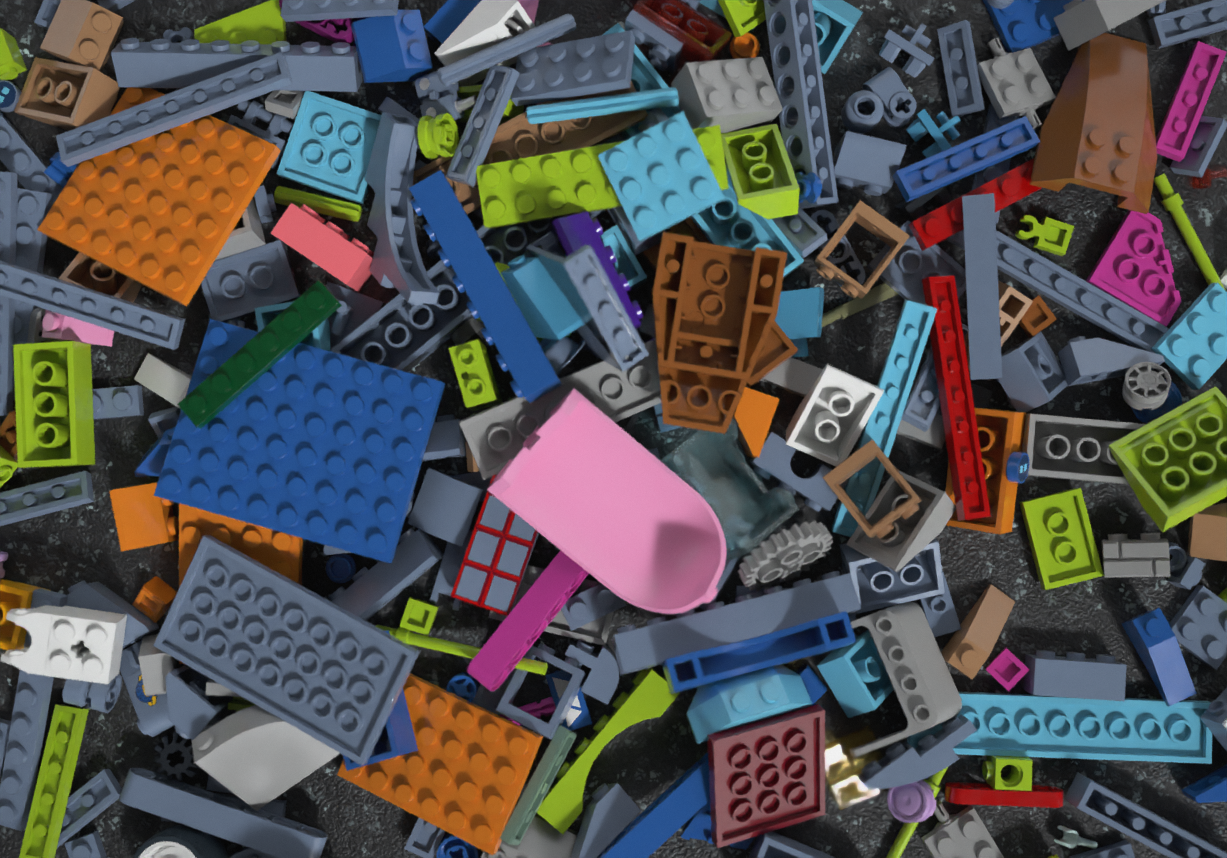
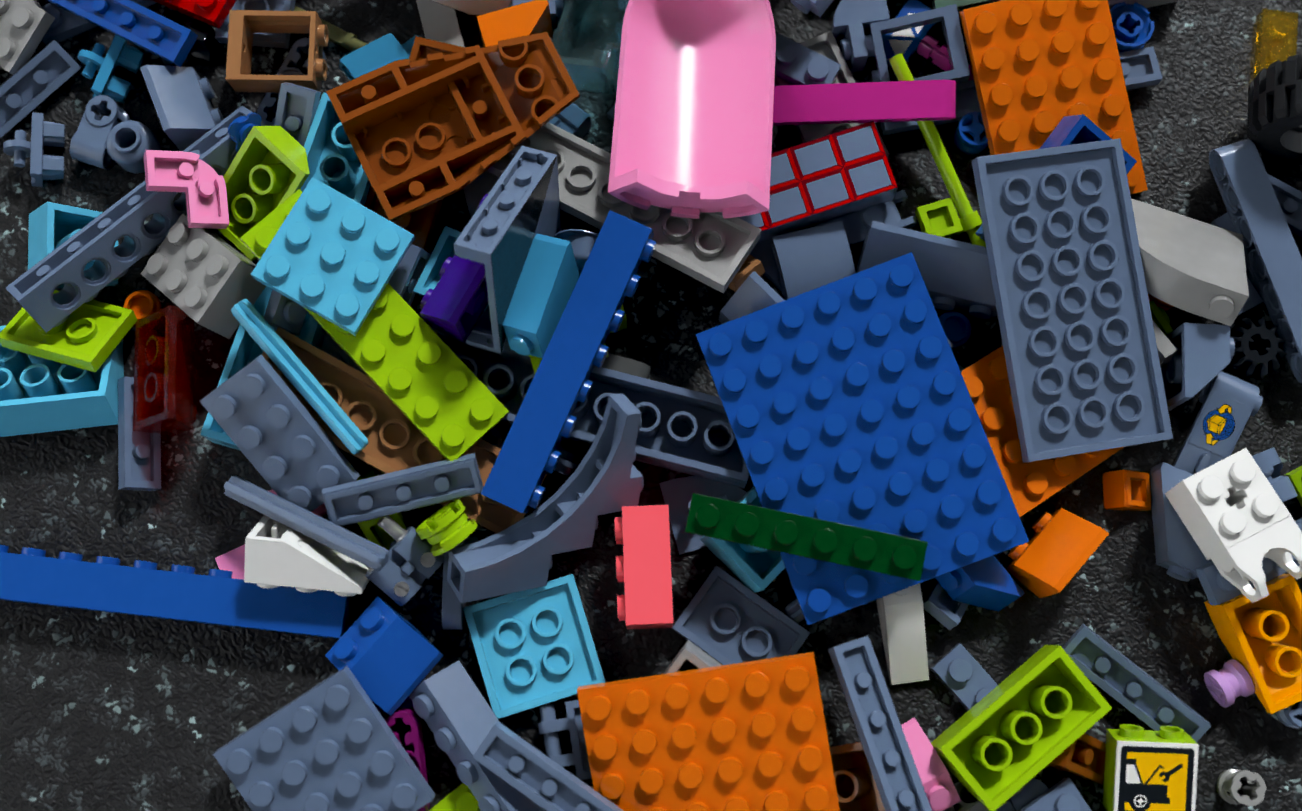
camera: 125 degrees left, 10 degrees down
(154, 666) = (1189, 427): light grey slope -> none
(265, 204) = (648, 667): sand blue plate -> none
(284, 102) = (527, 727): light grey plate -> none
(318, 203) = (606, 621): lime axle -> none
(479, 382) = (671, 309): lime window -> none
(663, 48) = (196, 378): sand blue plate -> none
(791, 130) = (187, 173): none -> bright pink plate

